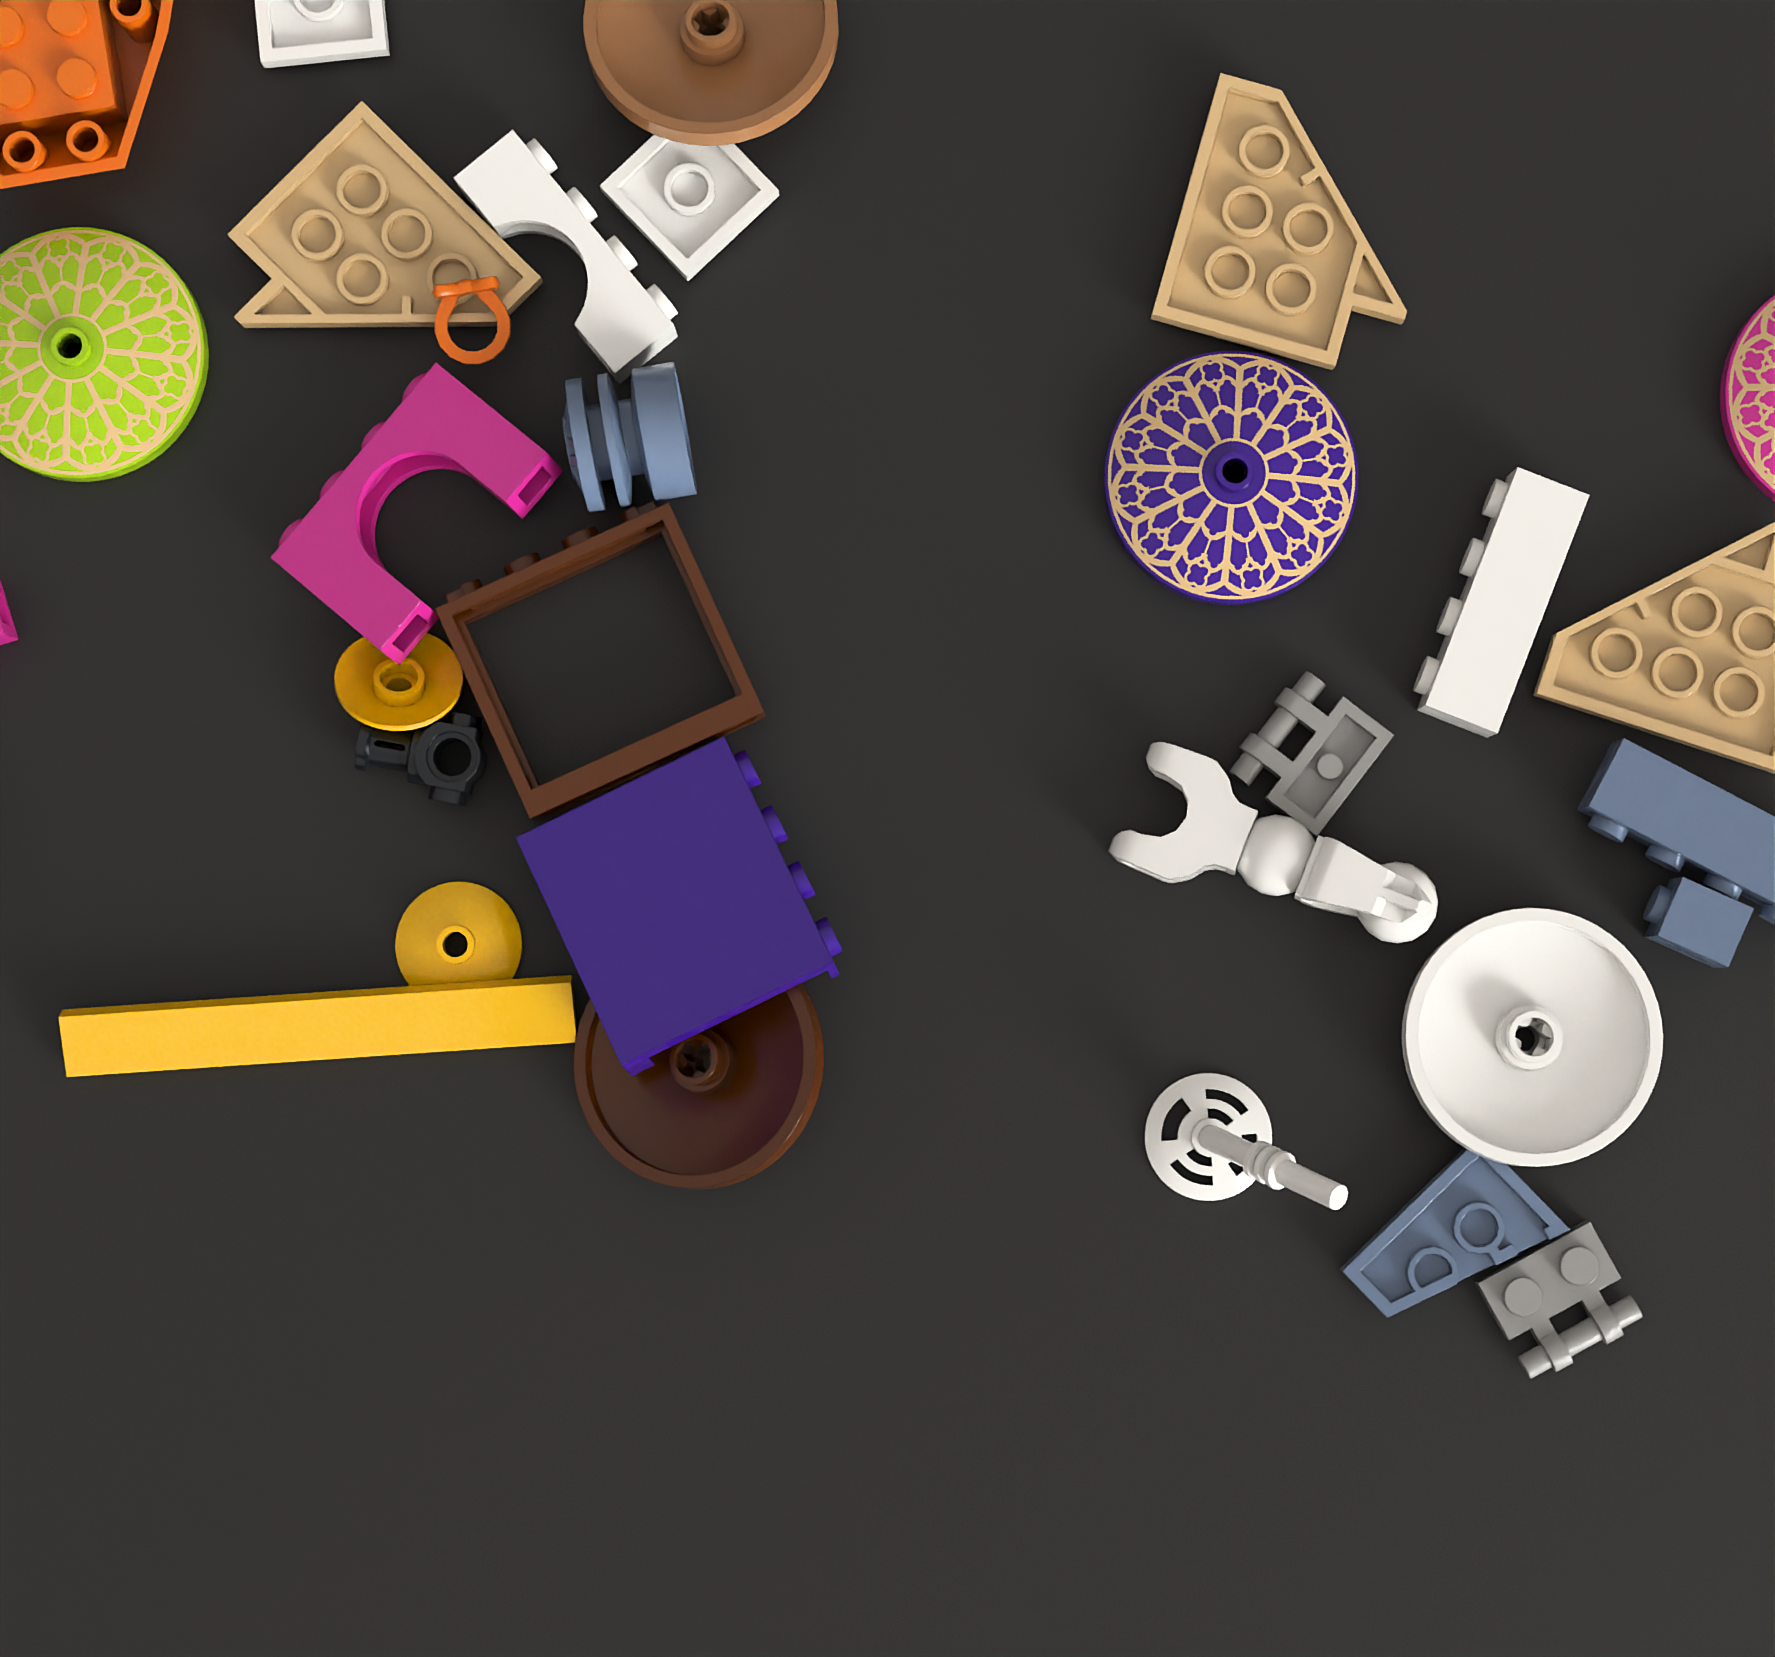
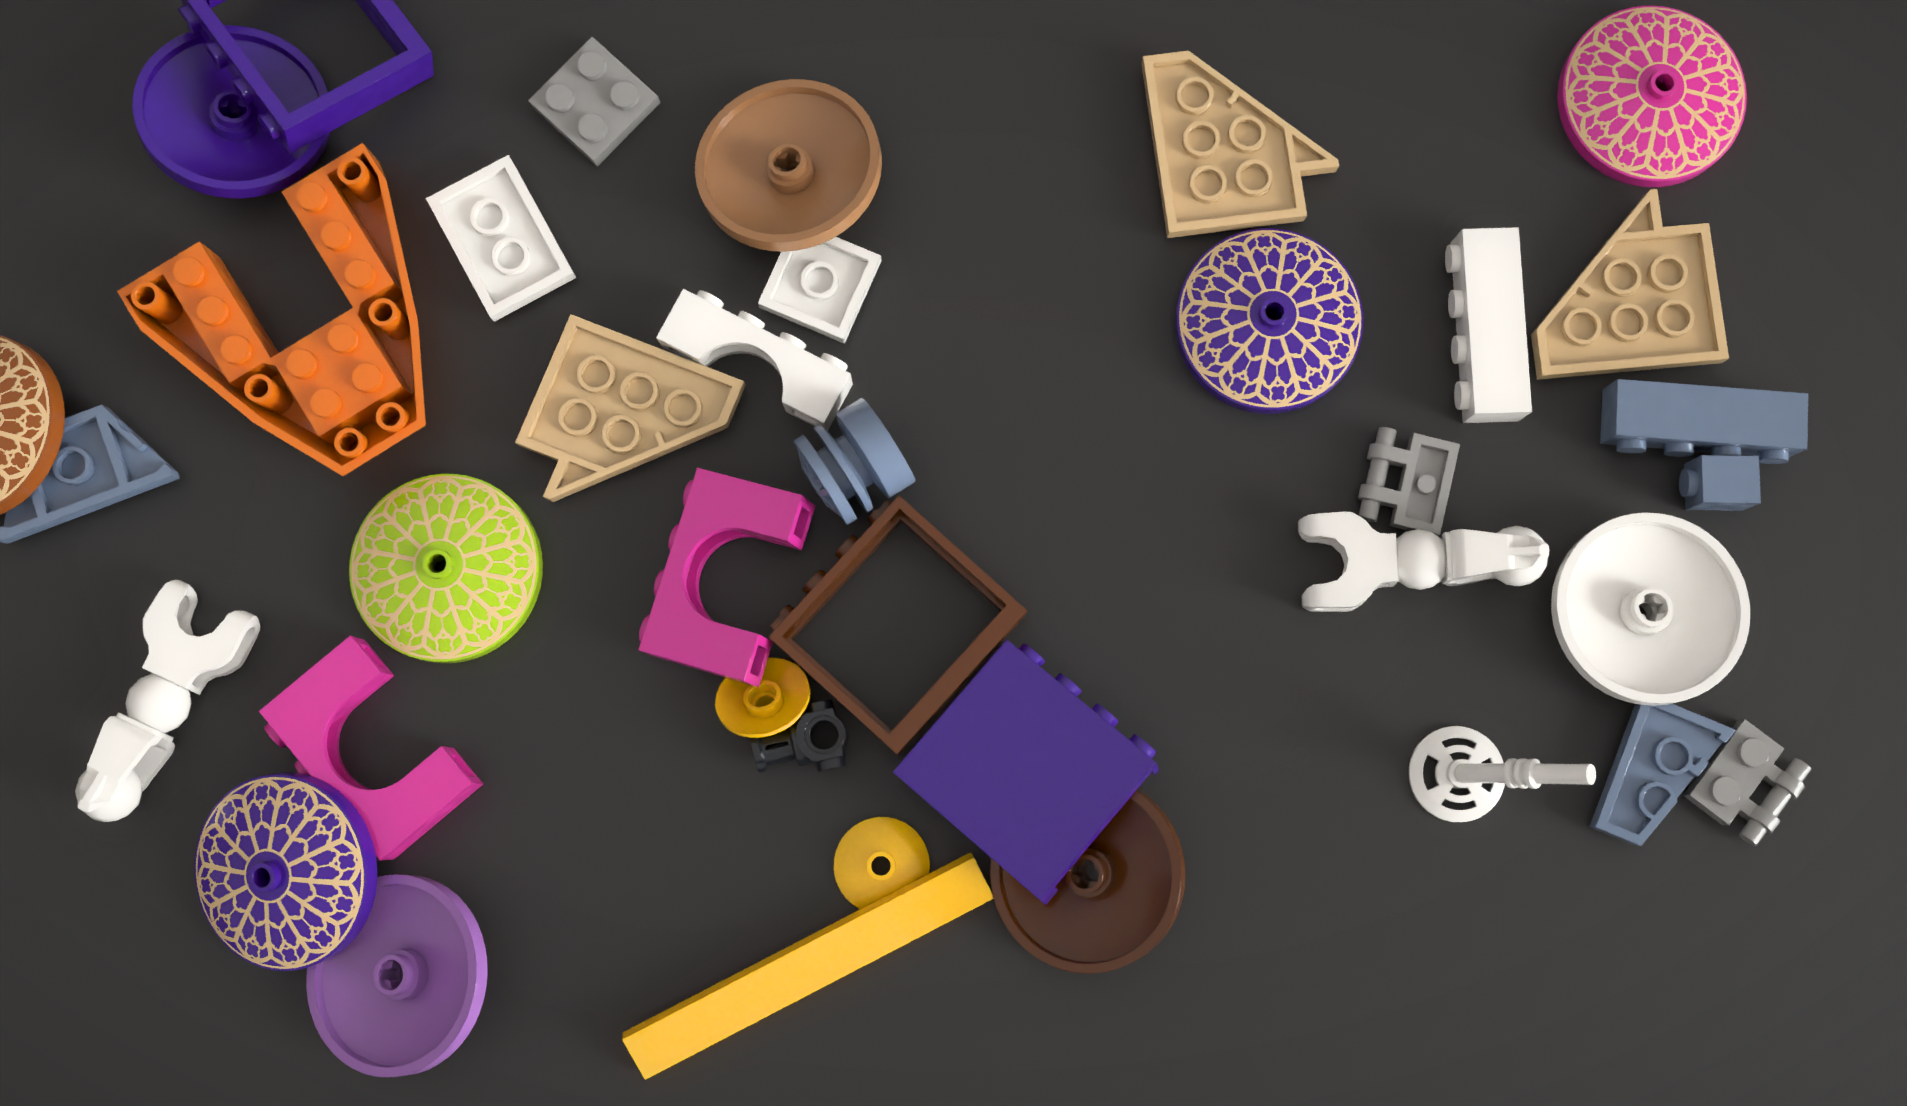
camera: 25 degrees left, 5 degrees down
(449, 295) = (686, 419): orange piece -> none

